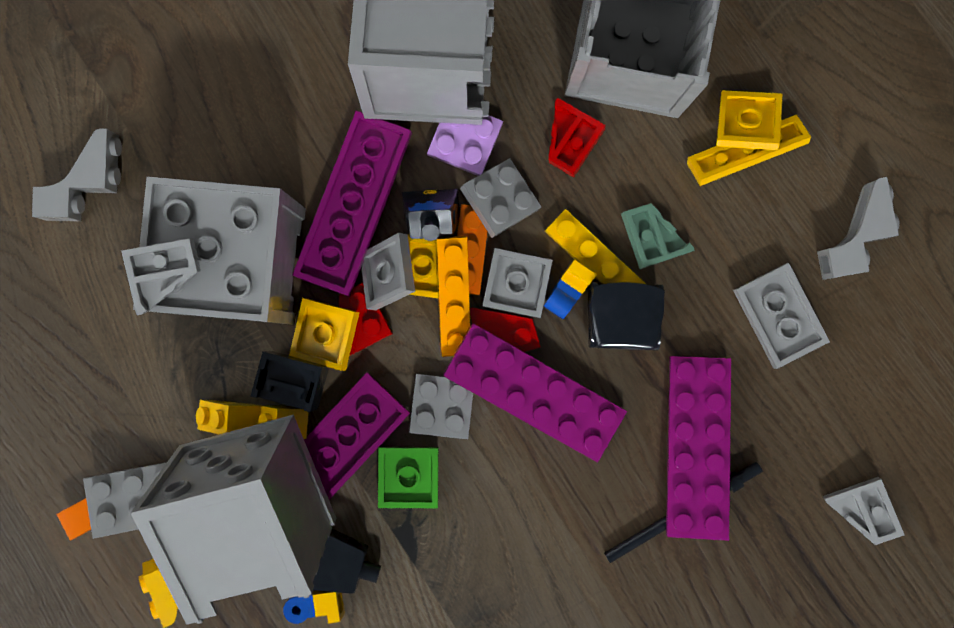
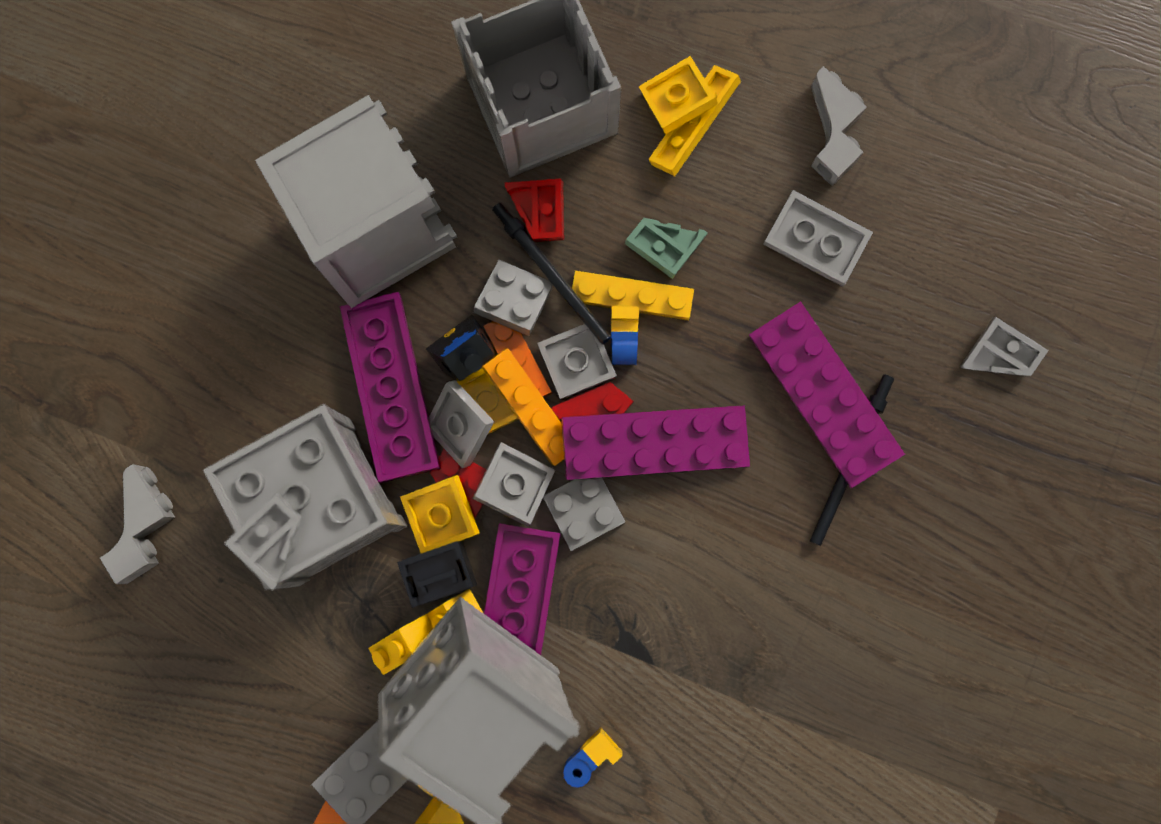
camera: 30 degrees left, 5 degrees down
(344, 565) = (593, 705): black torso -> none
(399, 350) = (514, 484): none -> light grey plate
(408, 477) = (596, 590): bright green plate -> none
(465, 144) = (452, 274): lavender plate -> none
(540, 143) = (516, 230): none -> black bar
(625, 315) = (687, 325): black piece -> none

